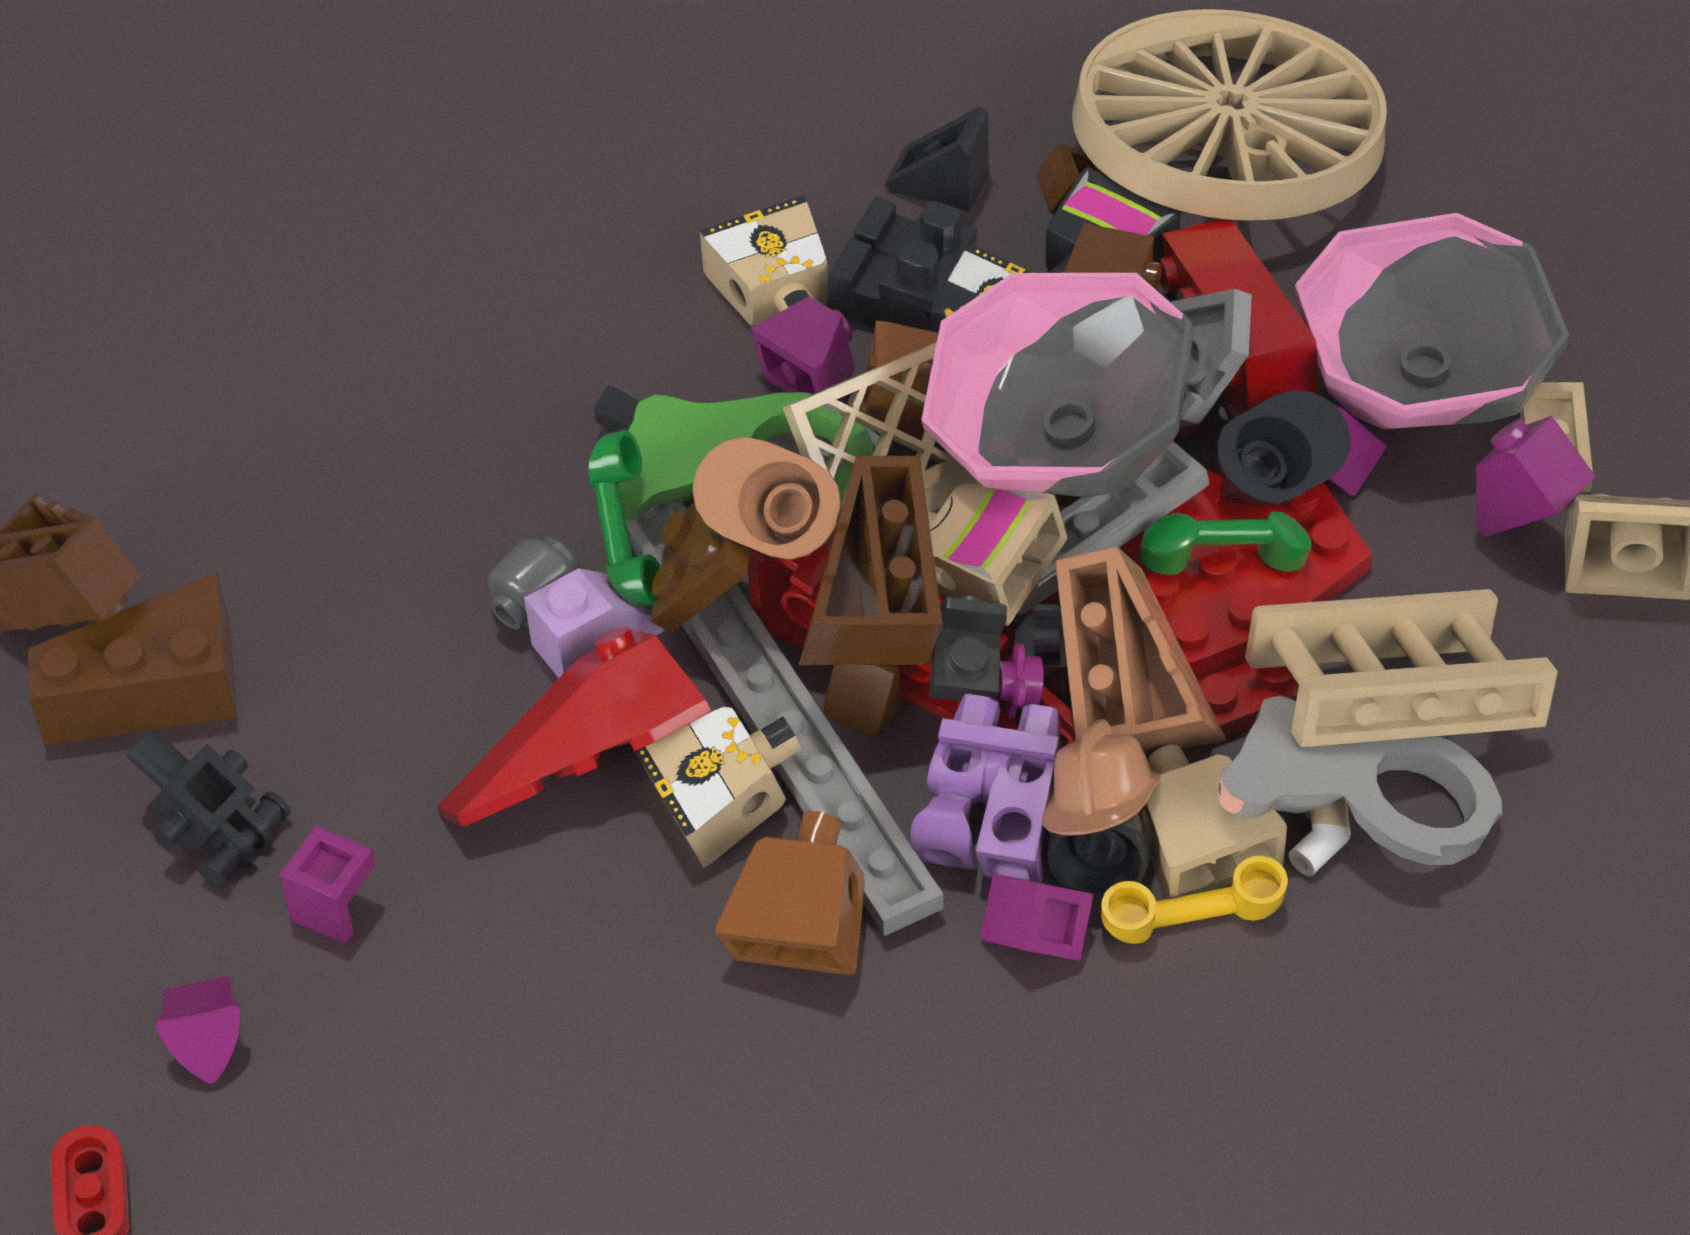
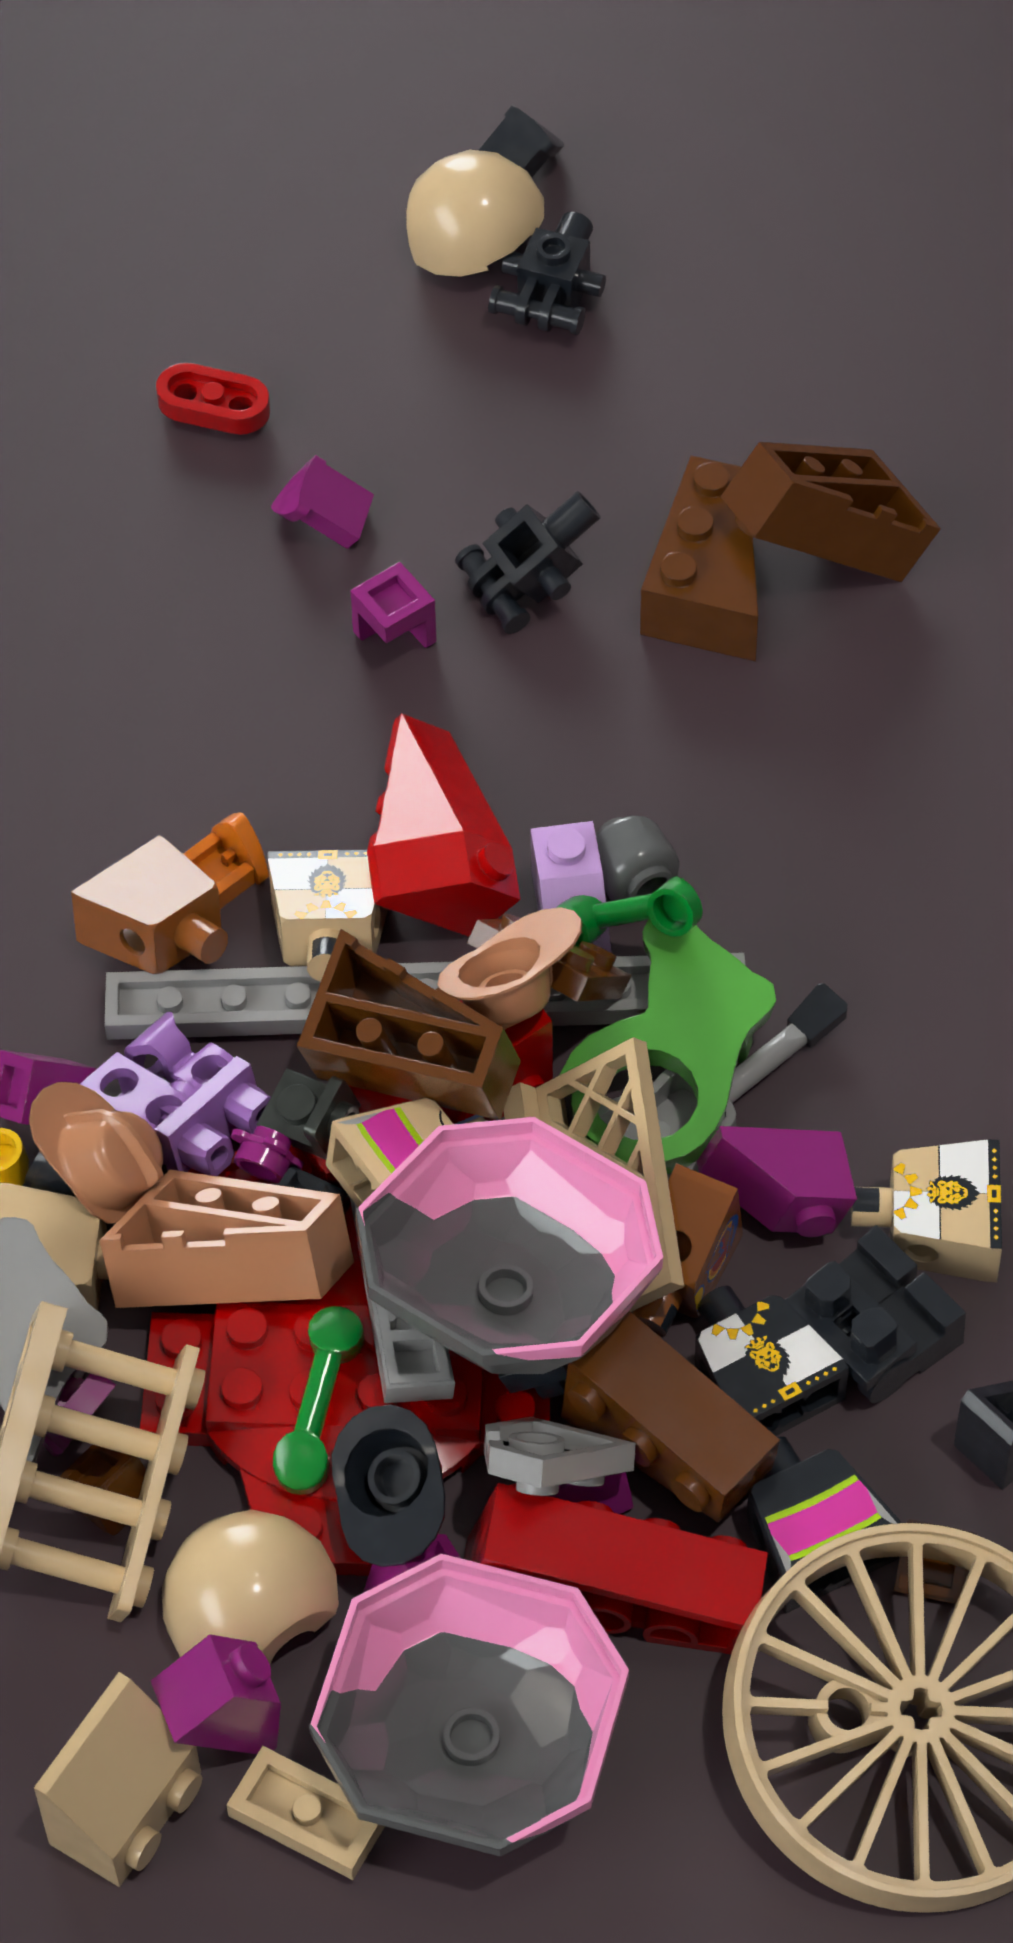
camera: 115 degrees right, 5 degrees up
(688, 908) = (231, 857): none -> orange tile
(1413, 536) = (248, 1581): none -> tan cylinder

